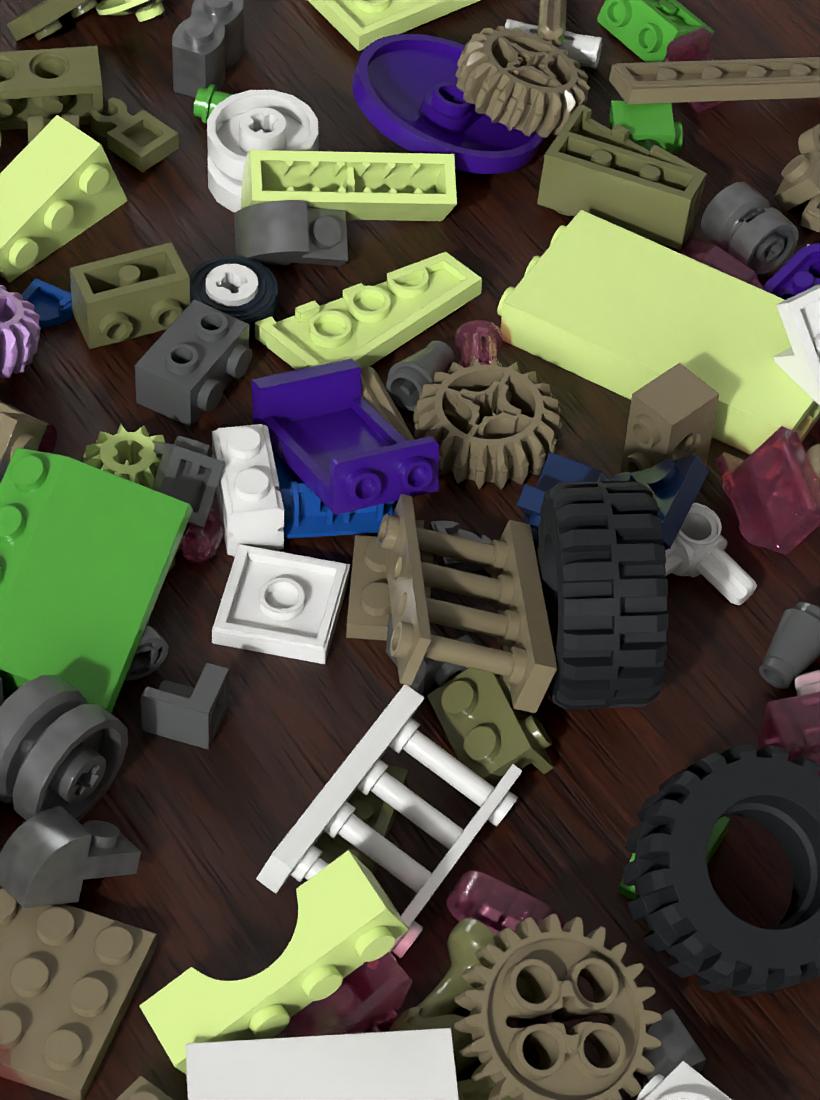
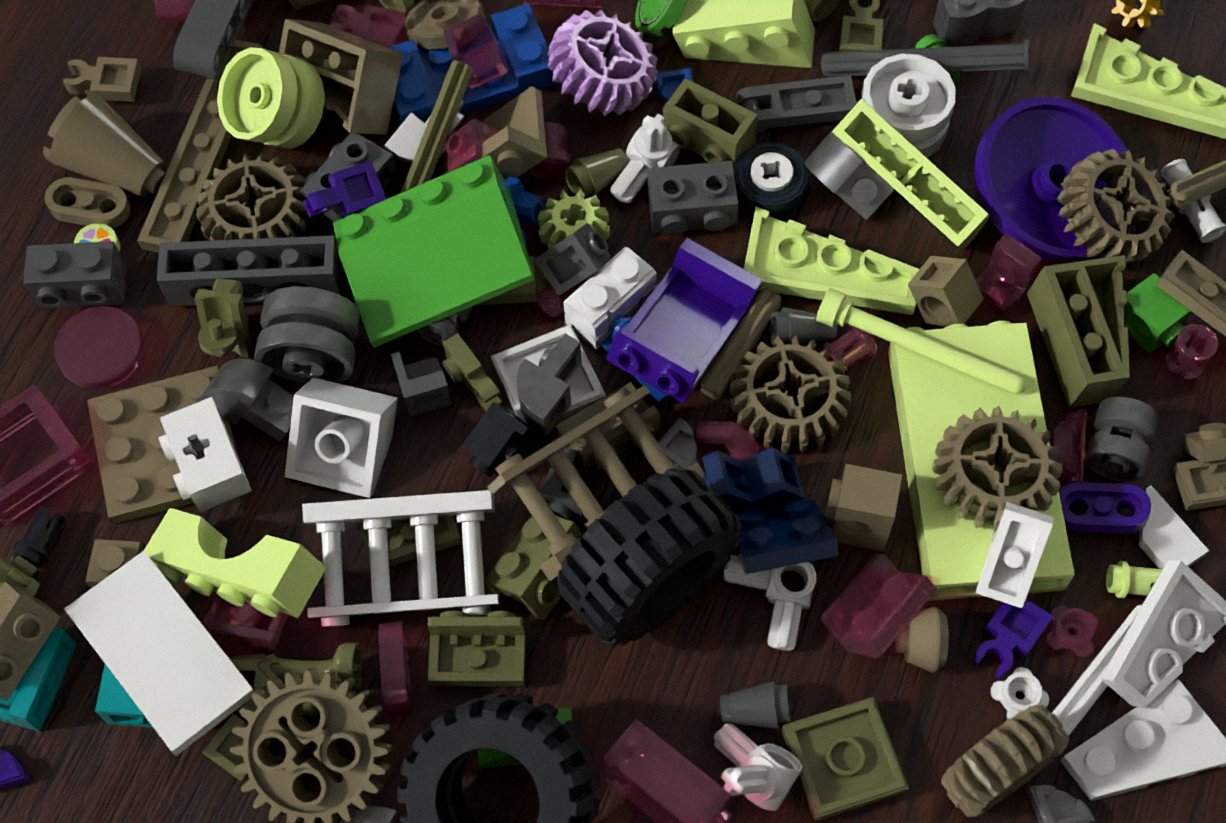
camera: 60 degrees right, 15 degrees up
(80, 419) = (595, 171): none -> olive cone
(107, 363) = (648, 148): none -> white axle
(108, 928) = (200, 431): none -> white brick
(173, 215) = (799, 101): none -> dark grey plate
(189, 809) = (339, 436): none -> white slope
(217, 646) = (465, 367): none -> olive plate
(258, 76) = (950, 58): none -> dark grey axle
(305, 597) = (544, 388): none -> flat silver brick
(326, 670) = (497, 438): none -> black brick
(444, 320) = (839, 310): none -> yellowish green piece
(488, 494) = (731, 435): none -> clear pink arm
(491, 244) = (945, 291): none -> dark tan brick
(509, 194) = (1008, 272): none -> clear pink bracket
(549, 831) = (477, 650): none -> olive bracket
(703, 135) = (1192, 351): none -> clear pink bush
(719, 308) = (1032, 464): none -> dark tan gear

